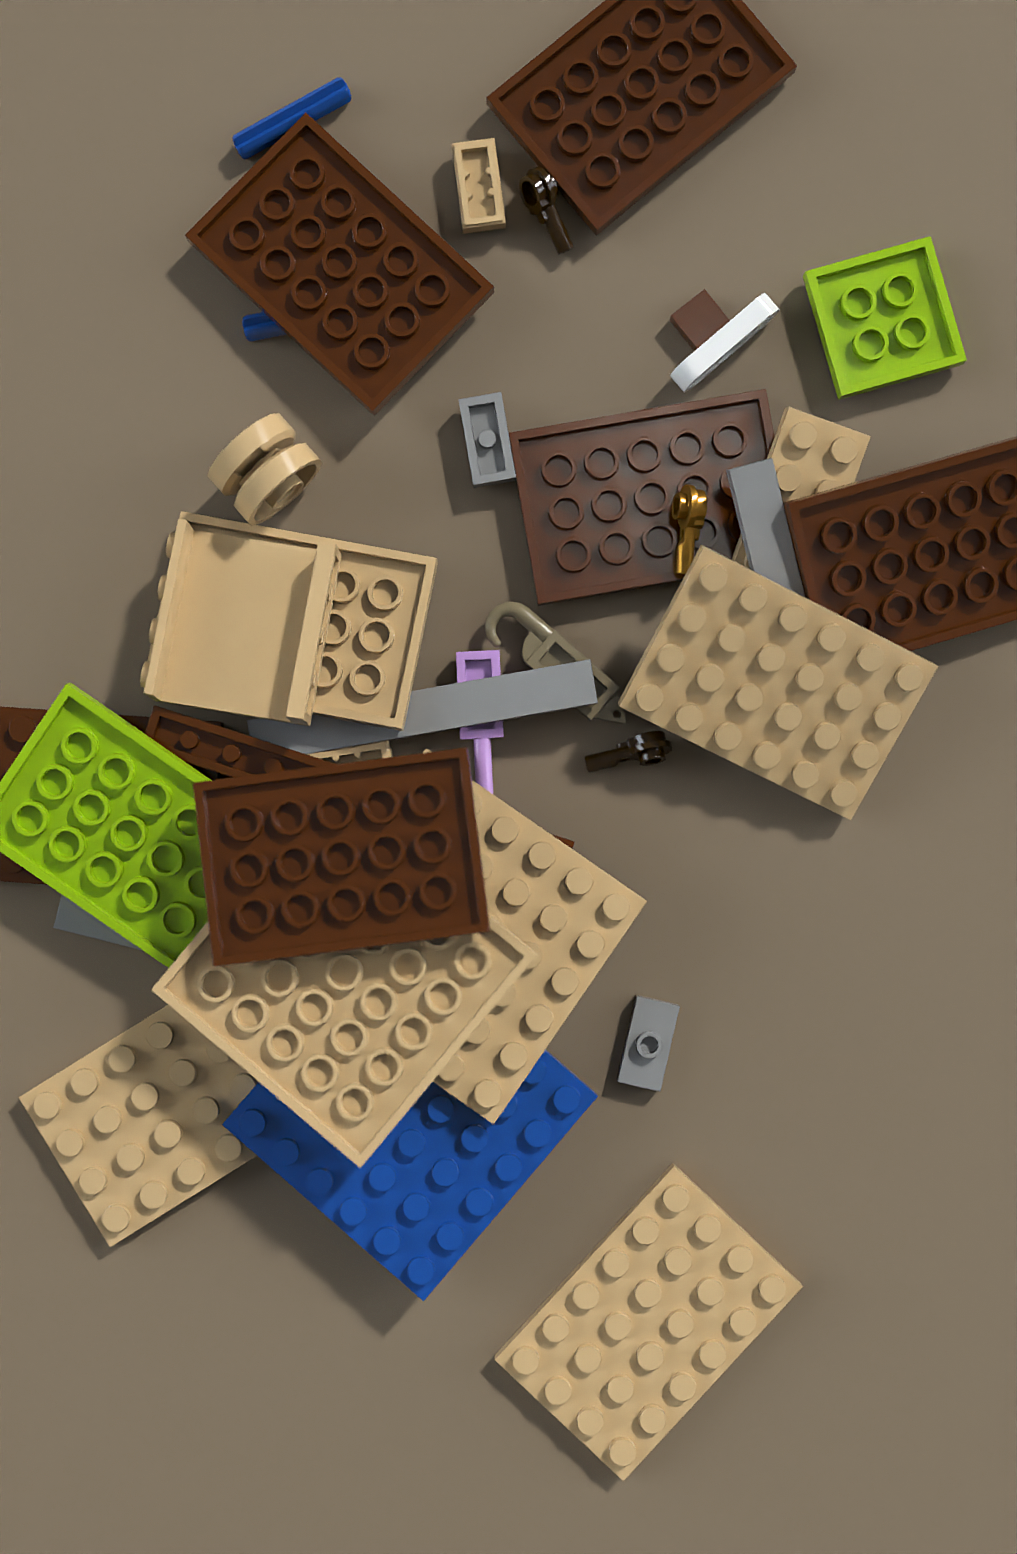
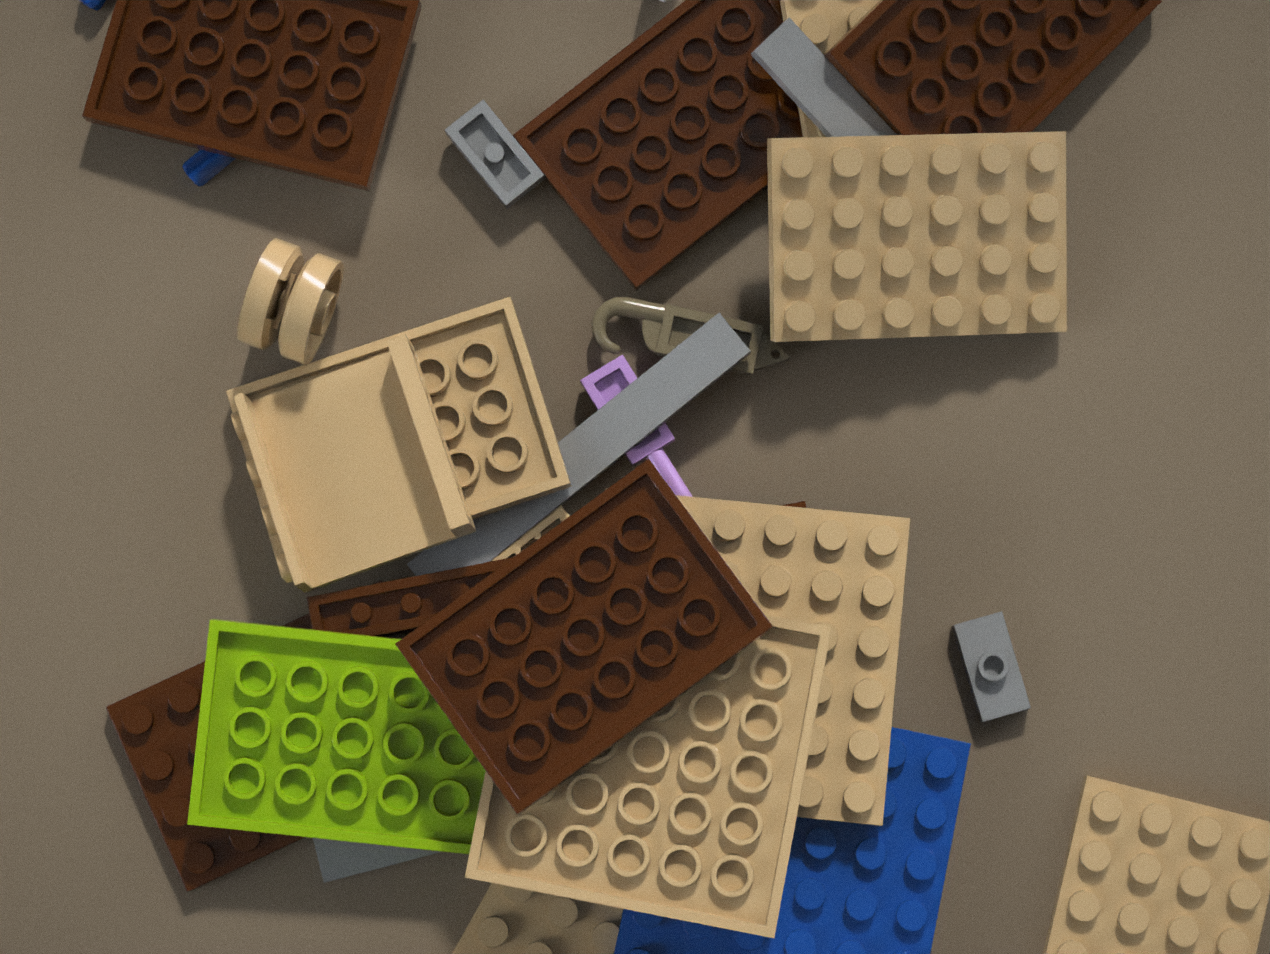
camera: 25 degrees left, 5 degrees down
(645, 747) = (823, 371): dark brown plate -> none
(690, 510) = (737, 114): pearl gold plate -> none

